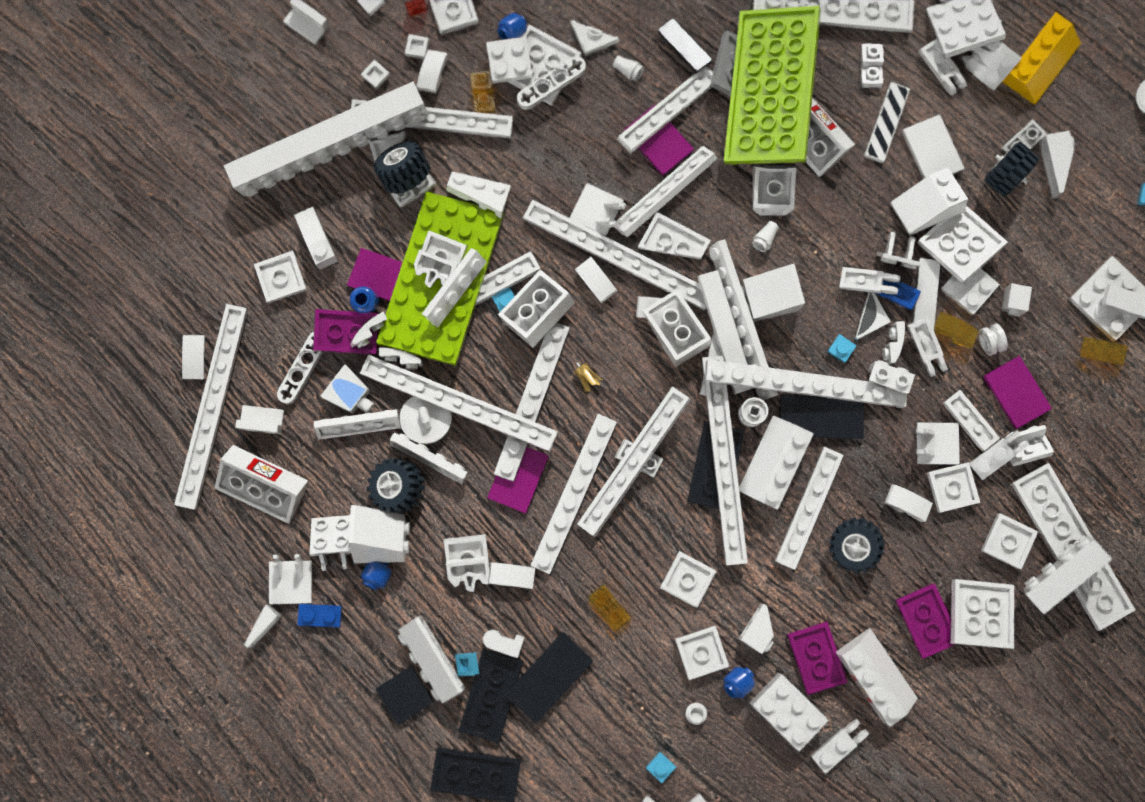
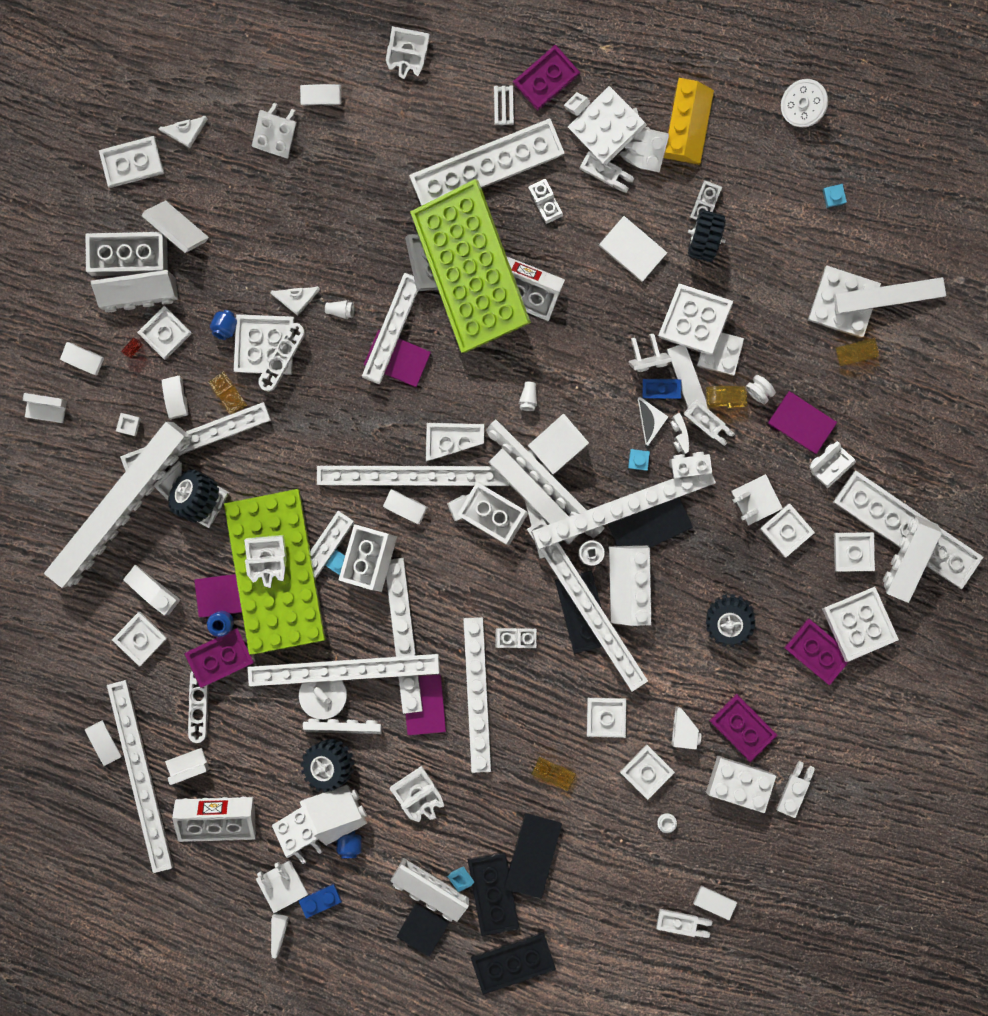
camera: 20 degrees left, 5 degrees up
(348, 392) = (247, 706): white torso -> none
(357, 424) = (269, 729): white plate -> none
(364, 334) = (235, 653): white slope -> none
(407, 360) = (280, 654): white slope -> none
(416, 46) = (151, 382): white plate -> none
(454, 287) = (290, 577): white plate -> none
(482, 191) = (273, 480): white wing -> none
(503, 644) = (479, 848): white leg -> none
(509, 60) = (235, 355): white plate -> none
(511, 575) = (460, 788): white slope -> none
(586, 374) = (439, 592): pearl gold piece -> none
(597, 209) = (375, 445): white plate -> none
(634, 461) = (513, 644): white plate -> none
(660, 767) = (659, 880): medium azure plate -> none
(665, 191) = (425, 401): white plate -> none
(684, 46) = (378, 266): tile -> none
(739, 682) = (689, 781): blue head -> none
(773, 189) = (515, 353): white slope -> none
(809, 508) = (676, 608): white plate -> none
(867, 280) = (631, 392): white hinge -> none
(877, 677) = (800, 719): white slope -> none
(886, 122) = (582, 244): tile -> none
(908, 502) = (756, 562): white slope -> none
(930, 202) = (651, 298): white slope -> none
(971, 420) = (775, 466): white plate -> none
(997, 455) = (810, 486): white hinge -> none
(1016, 299) = (764, 344): white brick -> none
(1057, 156) = (740, 202): white slope -> none

